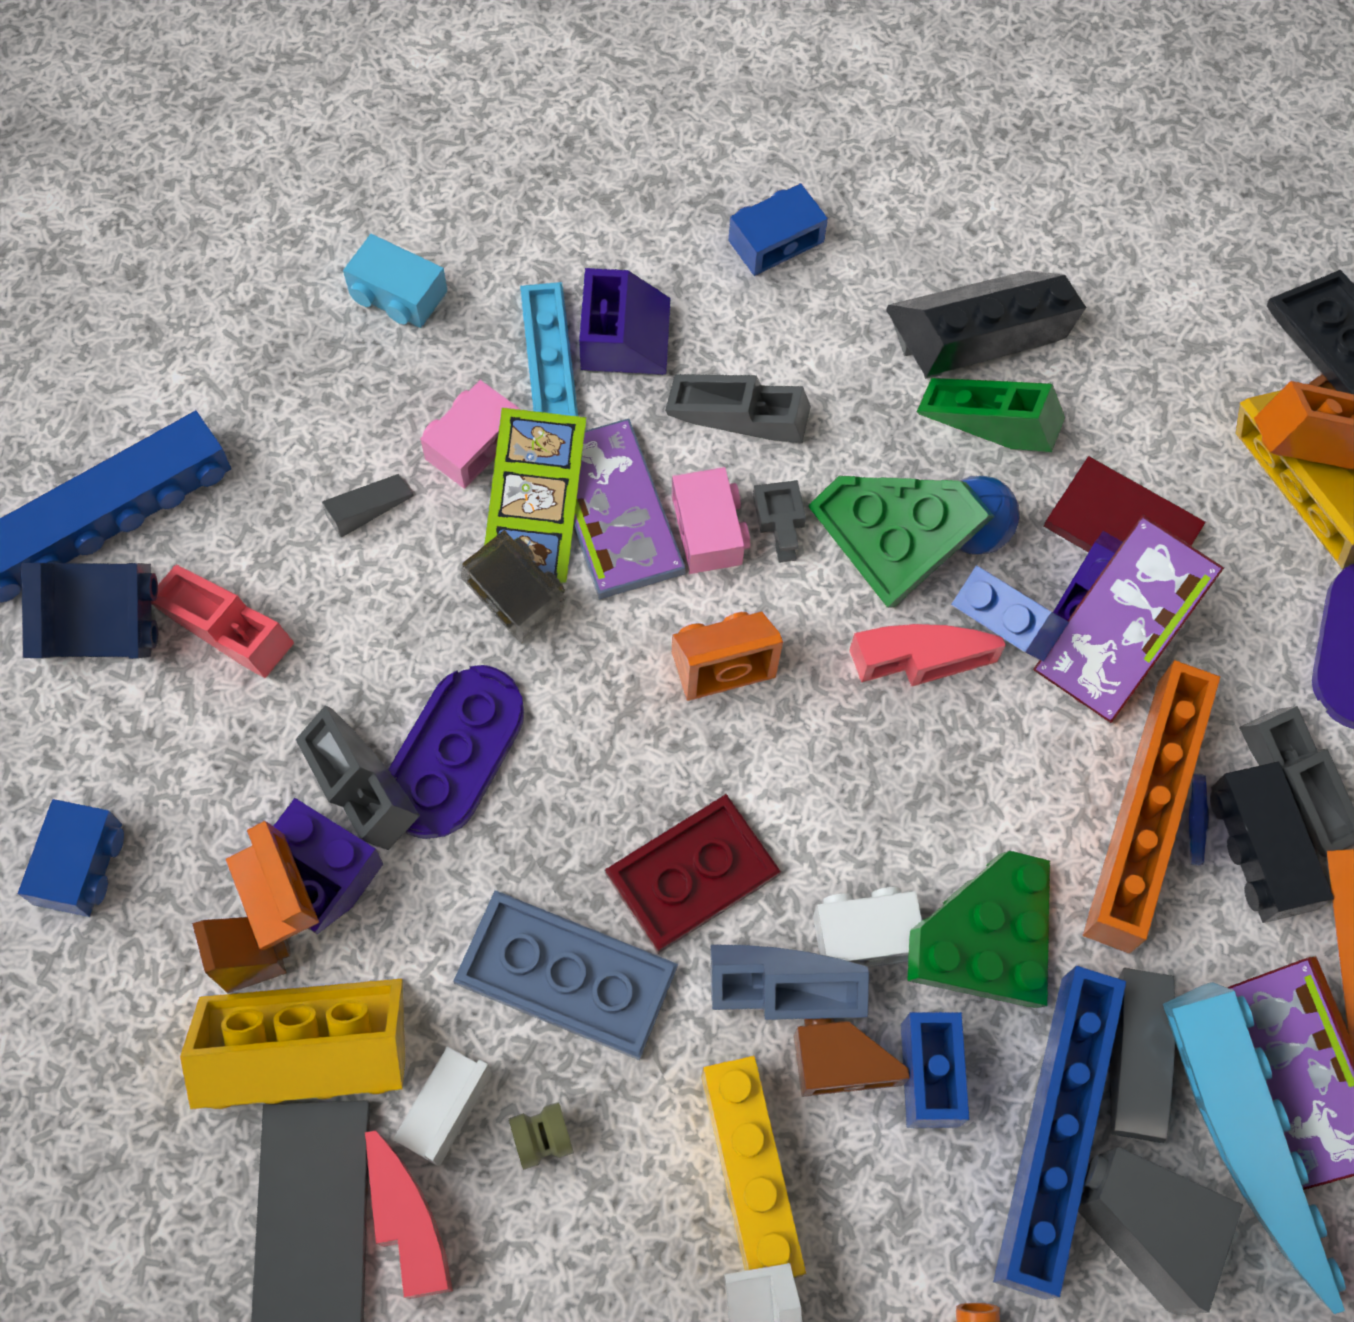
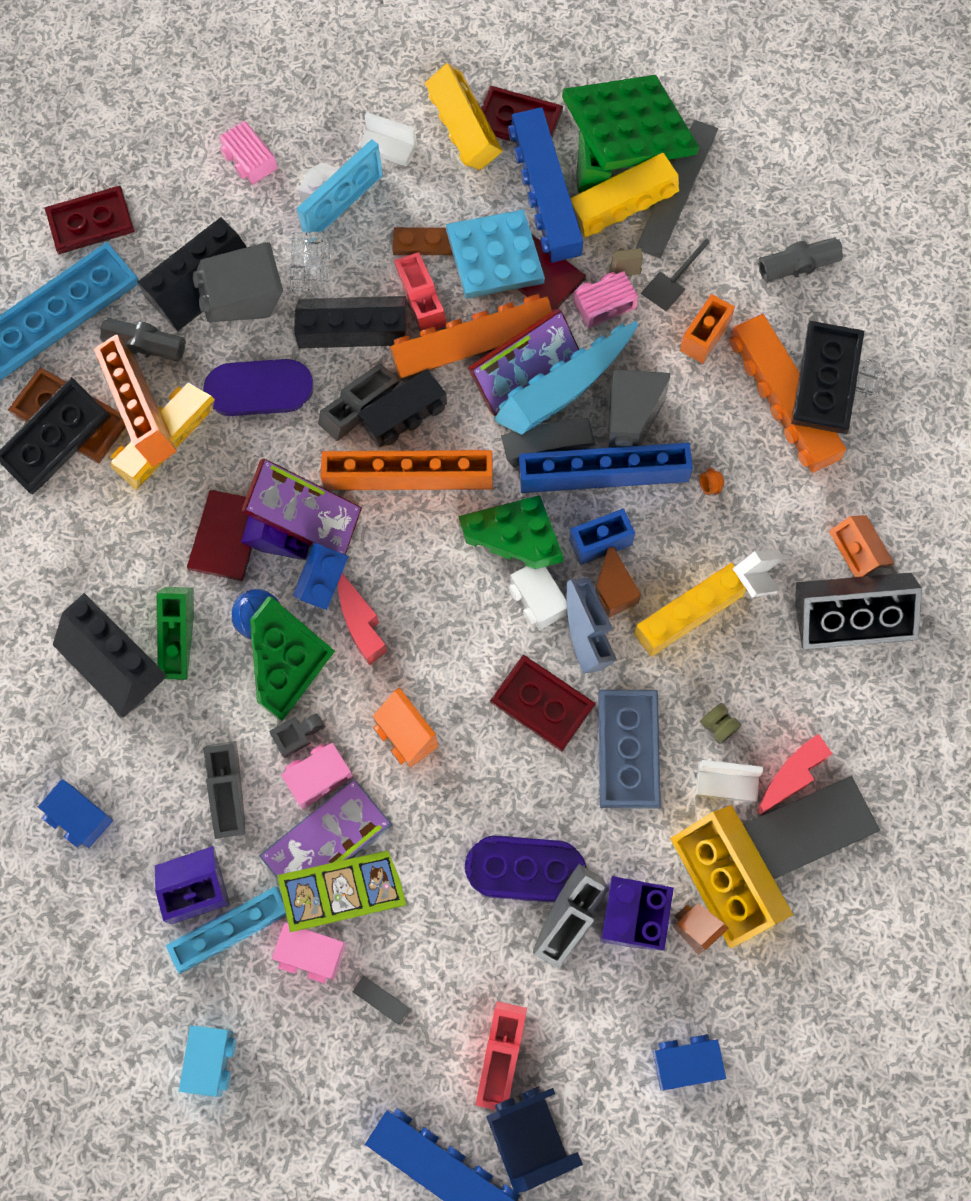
camera: 105 degrees left, 5 degrees up
(271, 887) = (663, 920): orange panel -> none
(513, 585) = (409, 874): clear smoke brick -> none
(1198, 819) = (410, 443): clear blue wheel -> none

